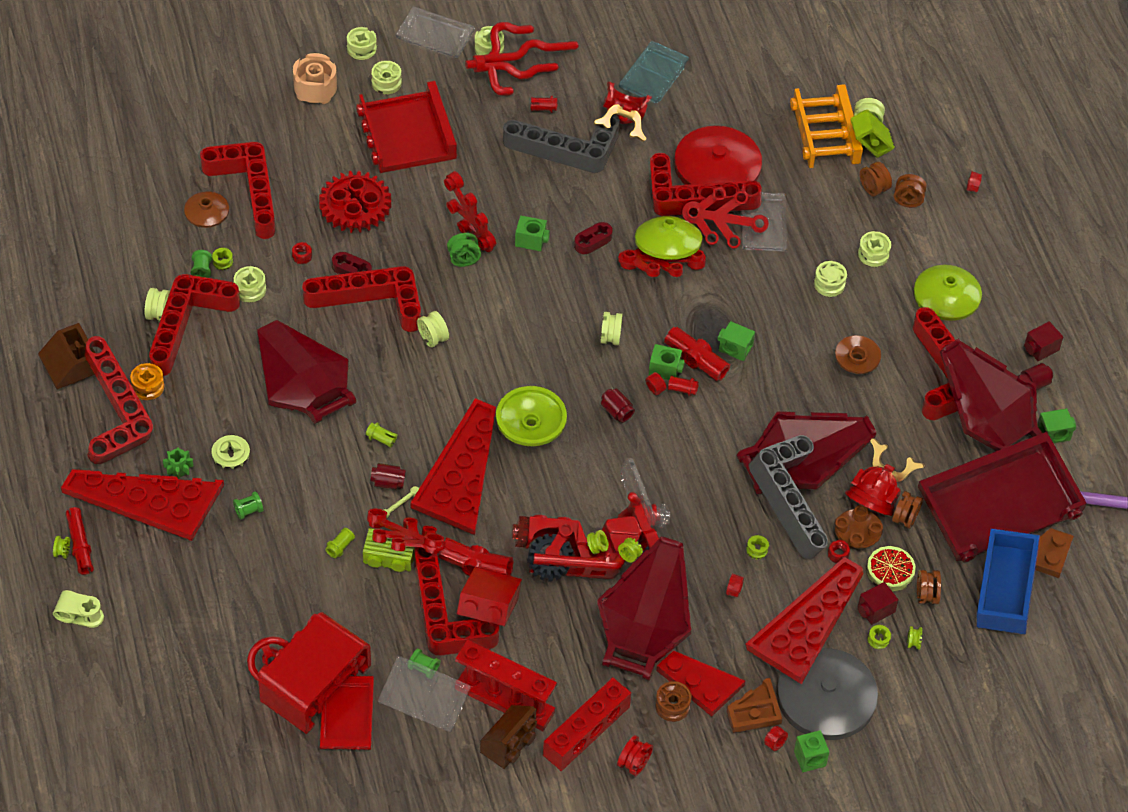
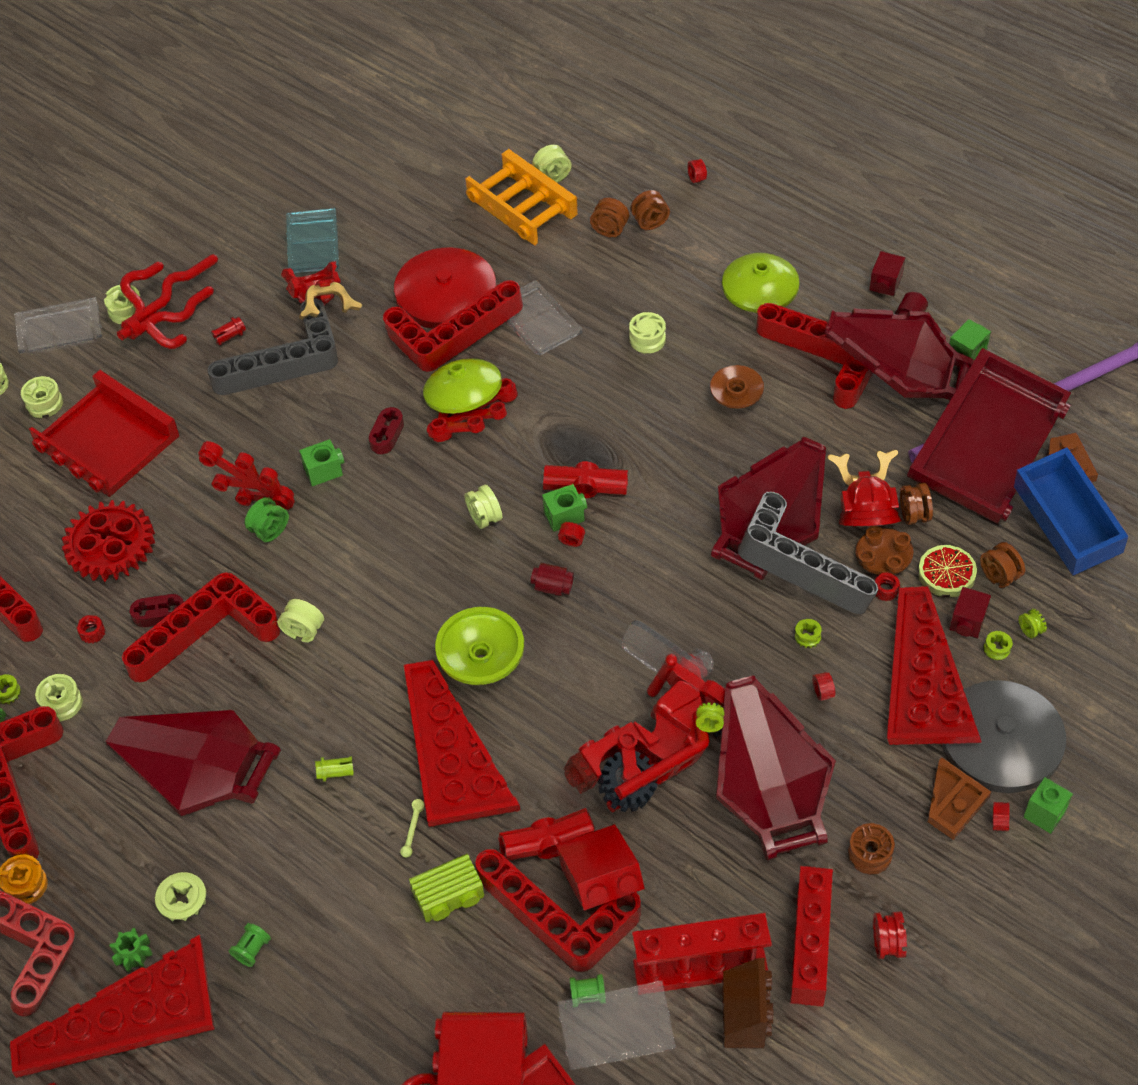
camera: 30 degrees left, 0 degrees up
(339, 543) = (385, 917): lime pin -> none
(388, 476) = (379, 808): dark red brick -> none
(406, 535) = (451, 856): red plant -> none
(597, 542) = (667, 731): lime bush -> none
(683, 385) = (599, 519): red pin -> none
(708, 685) = (886, 804): red wing -> none
(721, 217) = (498, 335): red plant -> none
(736, 340) = (612, 444): bright green brick -> none
(872, 133) = (572, 177): lime brick -> none
(875, 248) = (663, 281): yellowish green wheel -> none

